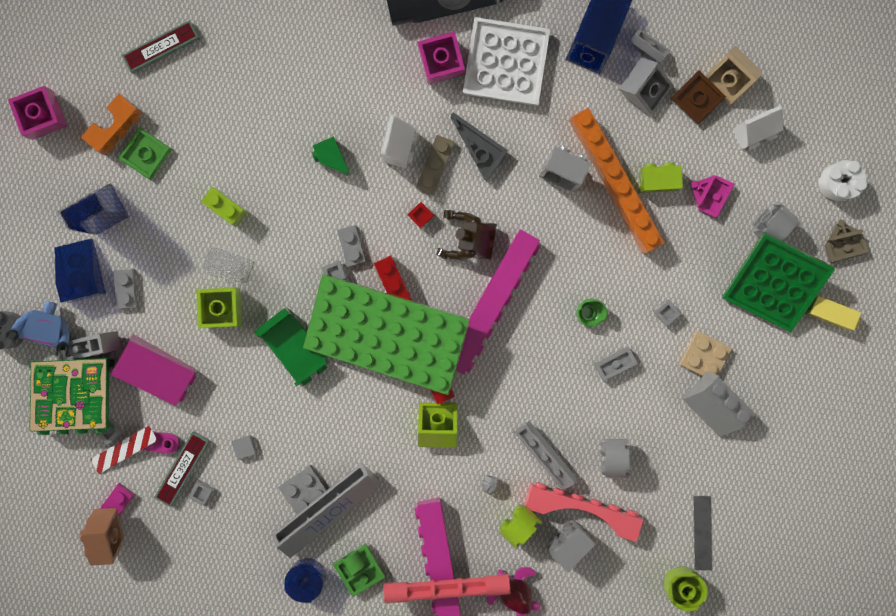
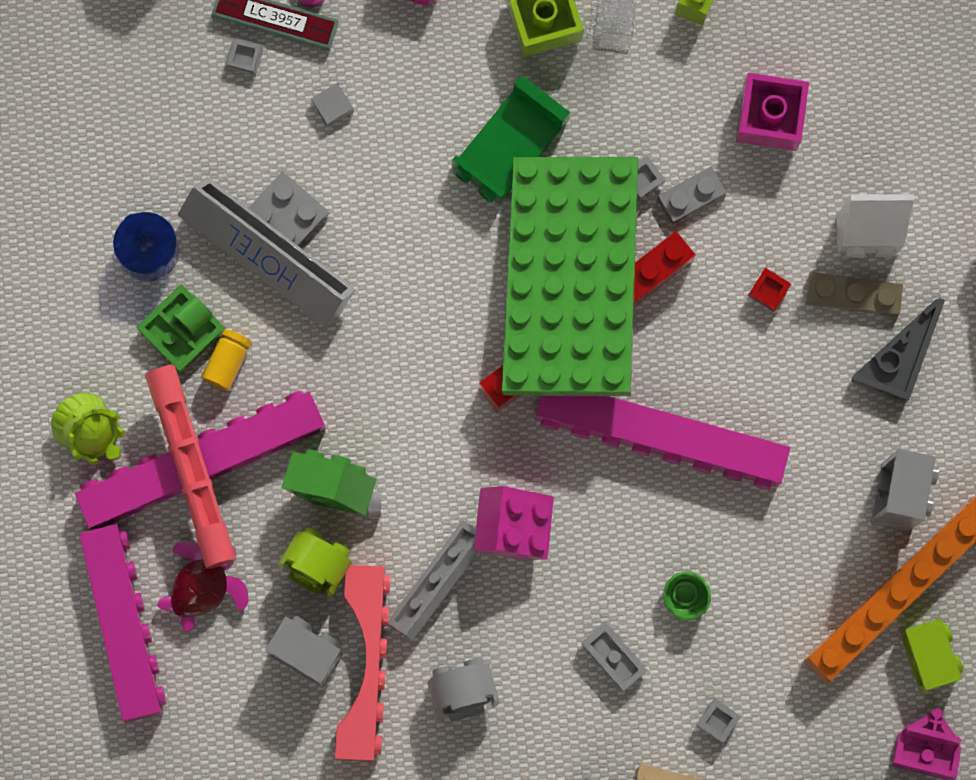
camera: 65 degrees right, 10 degrees down
(312, 184) = (772, 111): none -> dark pink brick
(330, 156) = (824, 128): green slope -> none
(385, 548) = (226, 360): none -> yellow piece
(437, 425) = (443, 395): lime slope -> none
(474, 237) = (755, 379): dark brown torso -> none
(475, 508) = (329, 482): none -> bright green brick
(526, 404) = (513, 523): none -> dark pink brick

